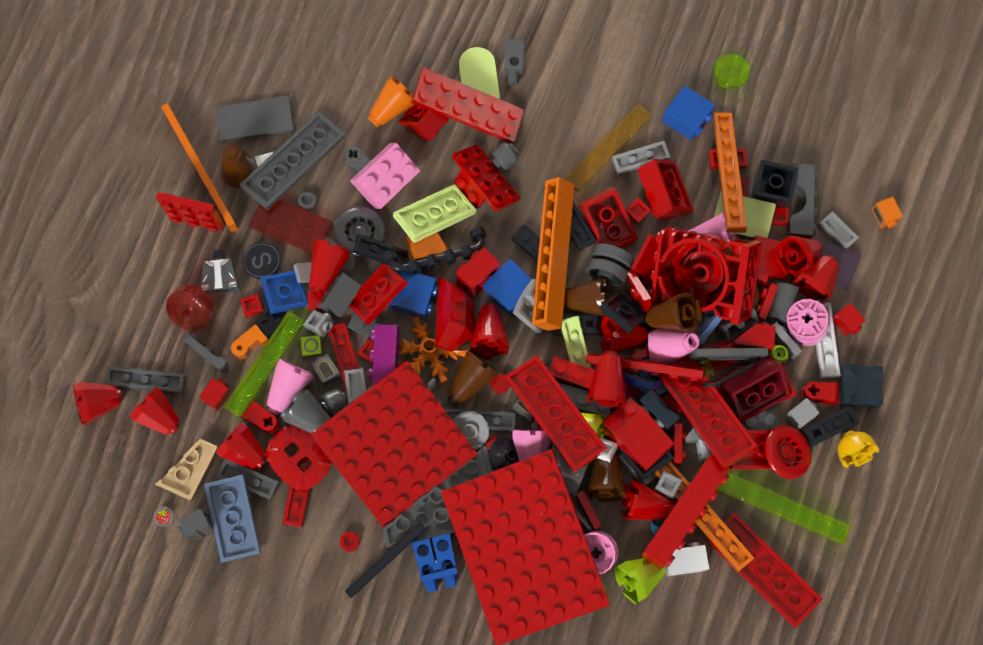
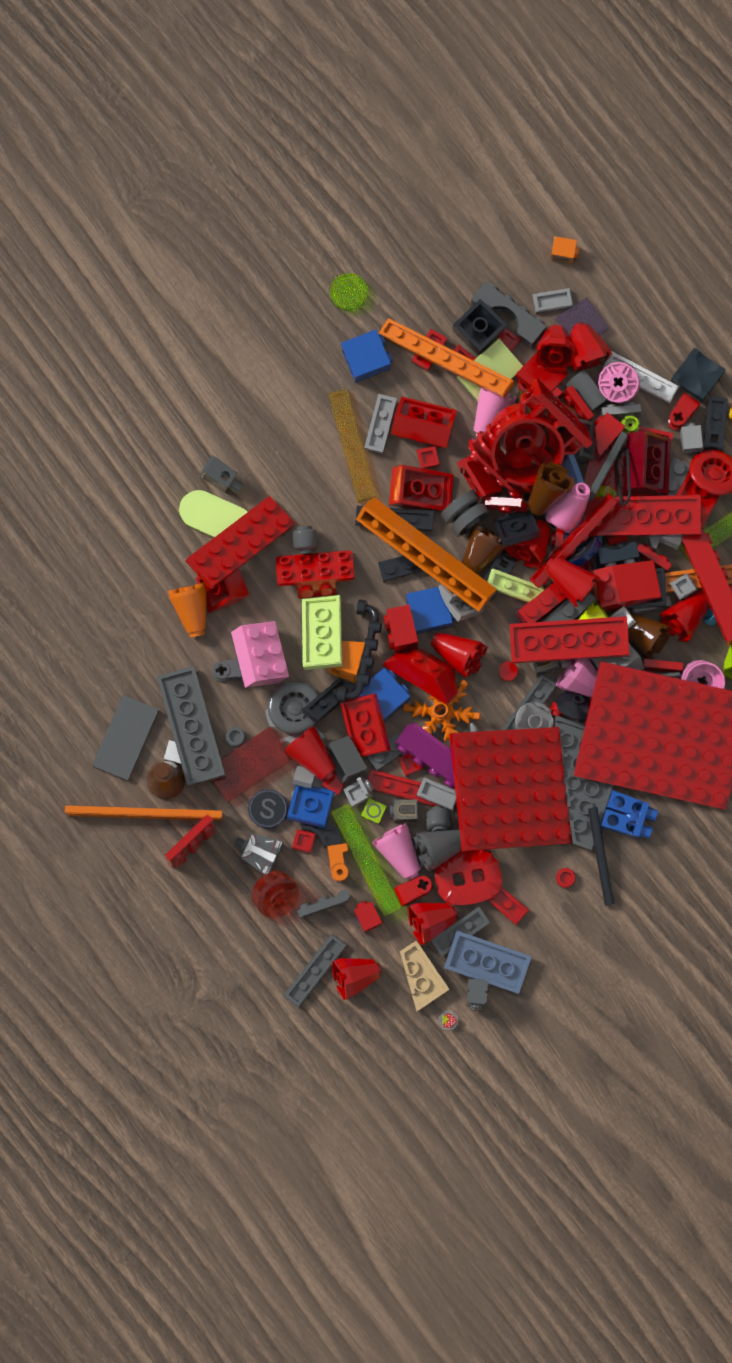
camera: 55 degrees left, 5 degrees up
(95, 400) = (310, 1023): red cone -> none
(470, 378) = (490, 693): reddish brown cone -> none
(849, 320) = (636, 346): red brick -> none

